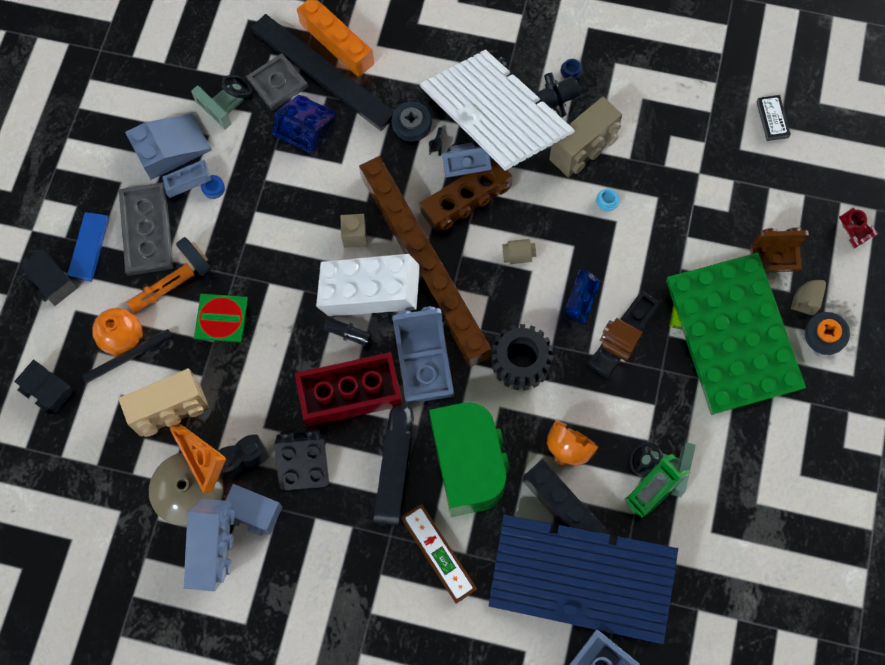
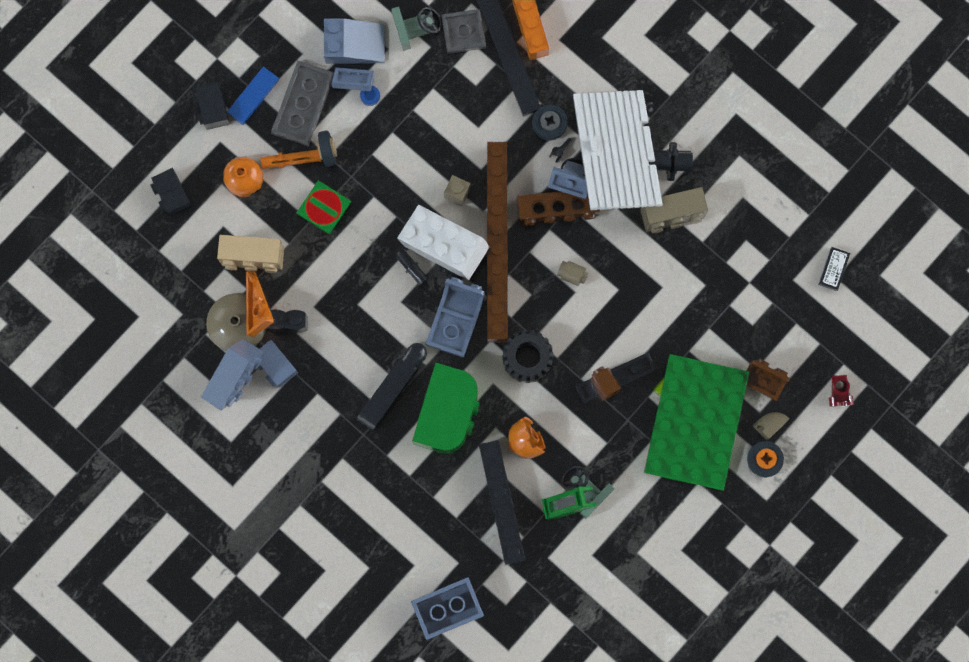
camera: 25 degrees right, 10 degrees up
(126, 356) = (241, 199): black bar -> none
(301, 121) = (465, 77): clear blue bracket -> none
(301, 459) = (329, 345): black bracket -> none
(348, 389) = (388, 313): dark red brick -> none
(439, 554) = (390, 466): tile -> none
(571, 68) = (699, 144): dark blue plate -> none
(582, 296) = (600, 333): clear blue plate -> none
(584, 578) = (479, 538): dark blue door -> none
(607, 200) = (664, 267): medium azure plate -> none

